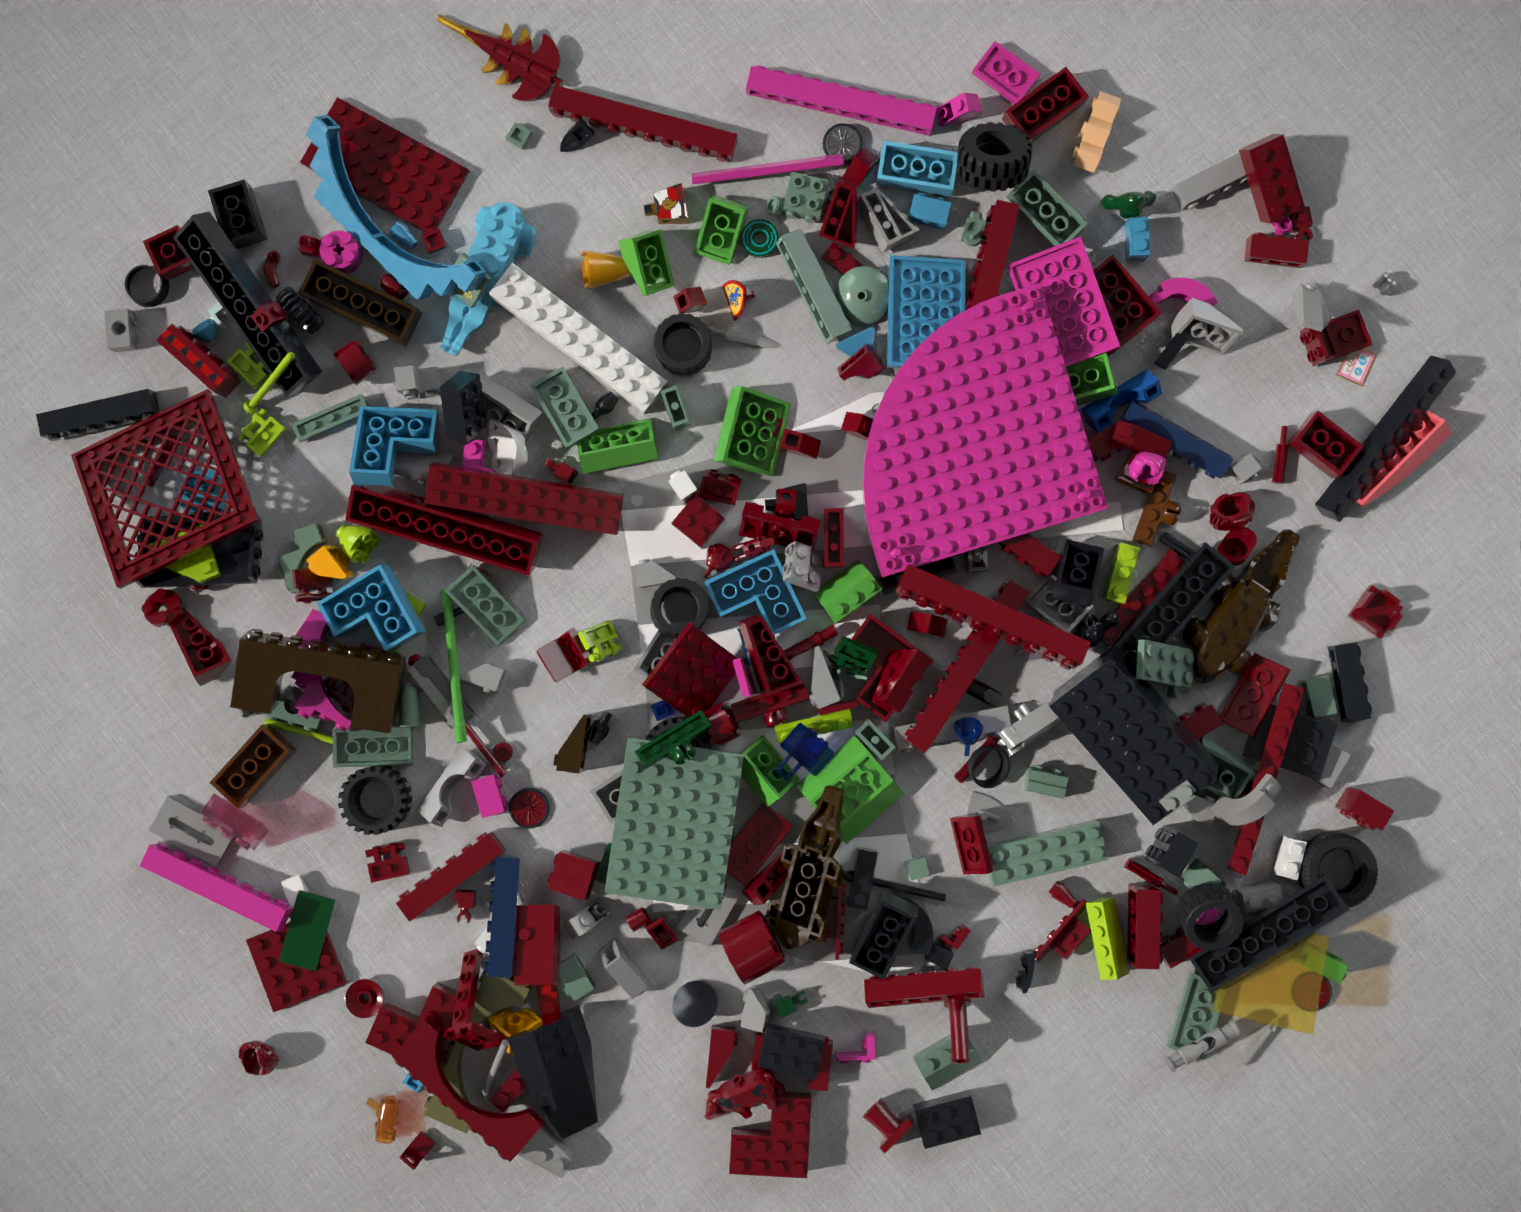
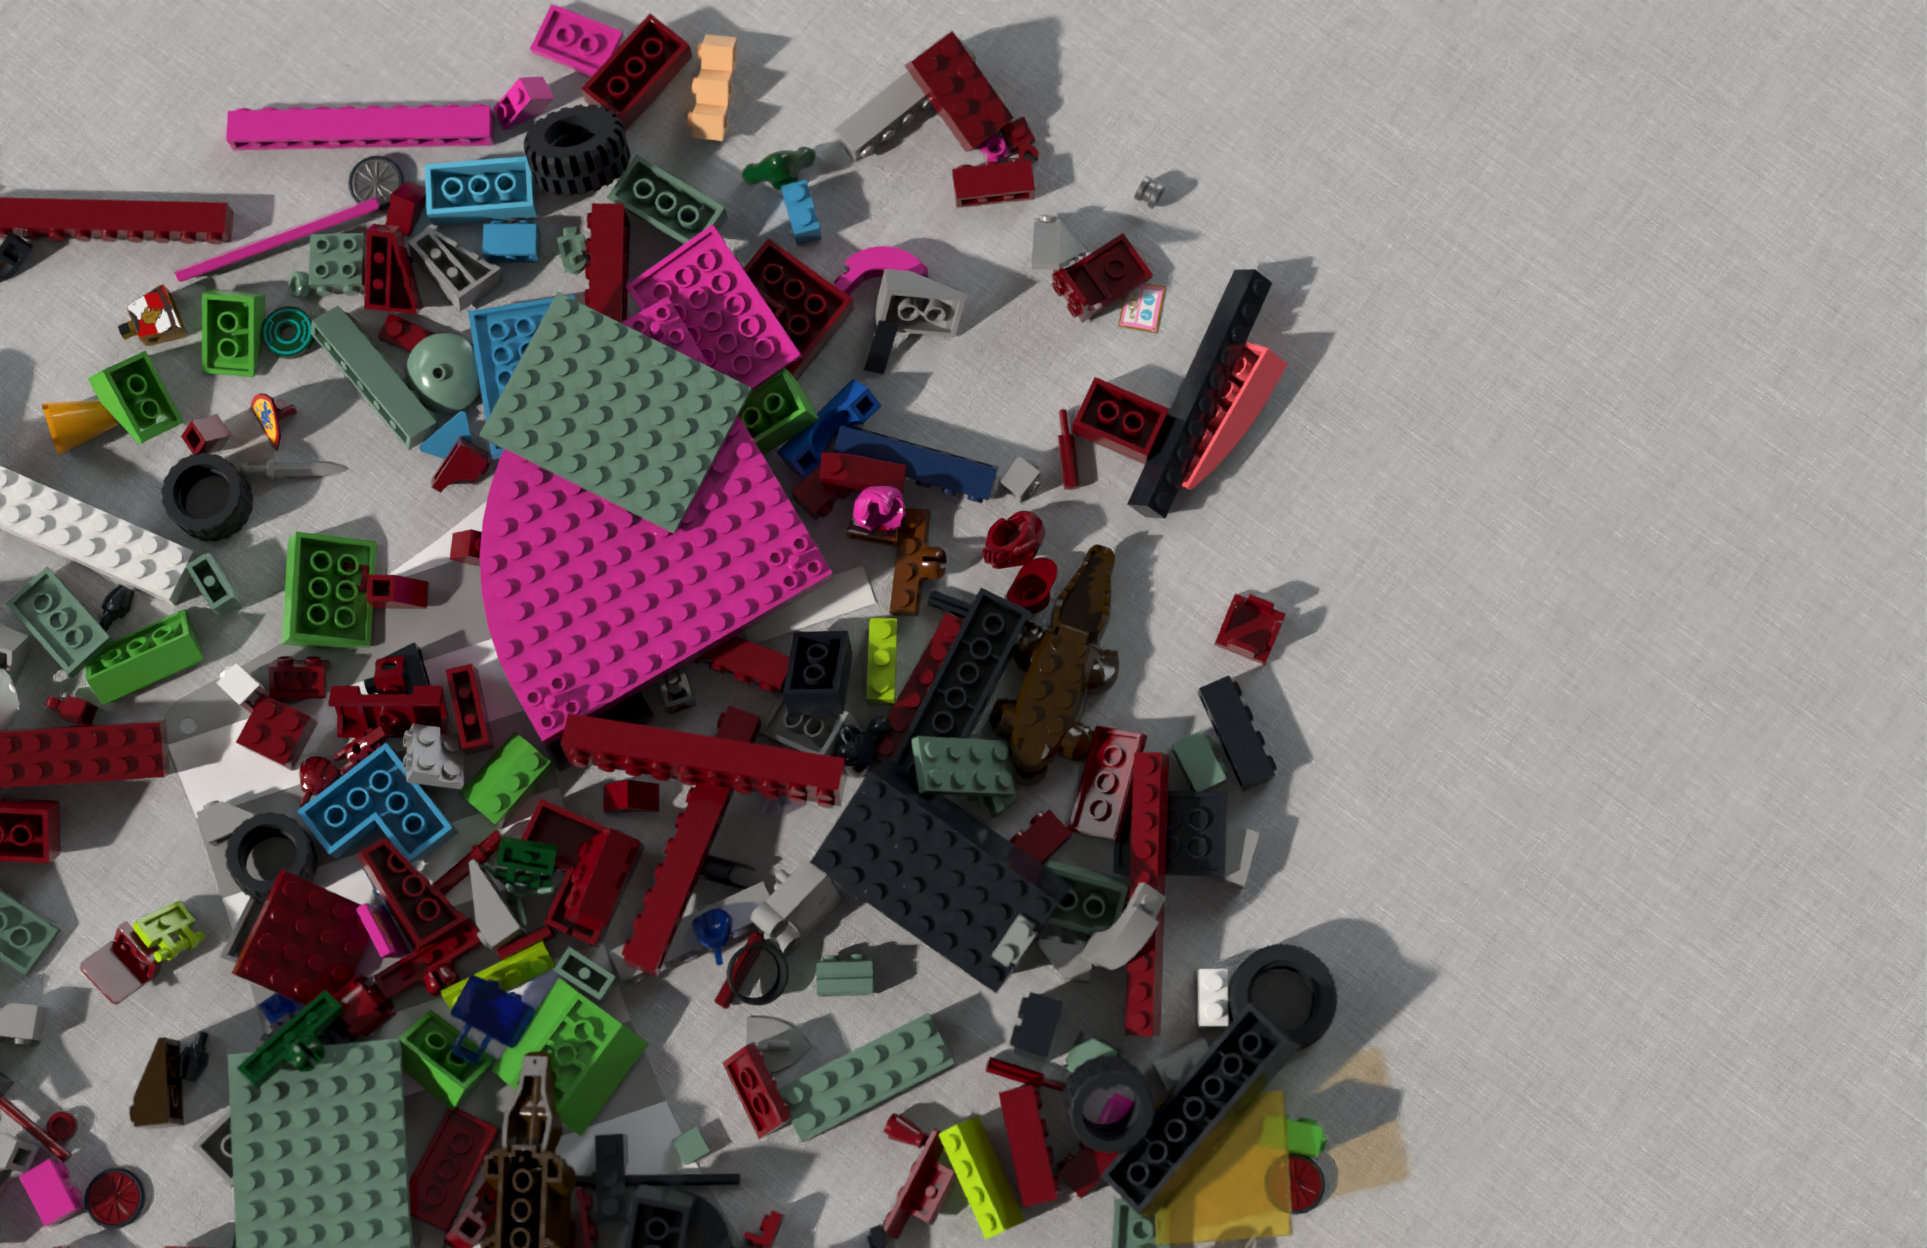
camera: 15 degrees left, 10 degrees down
(986, 359) = (616, 413): none -> sand green plate
(1364, 809) = (1297, 903): dark red brick -> none

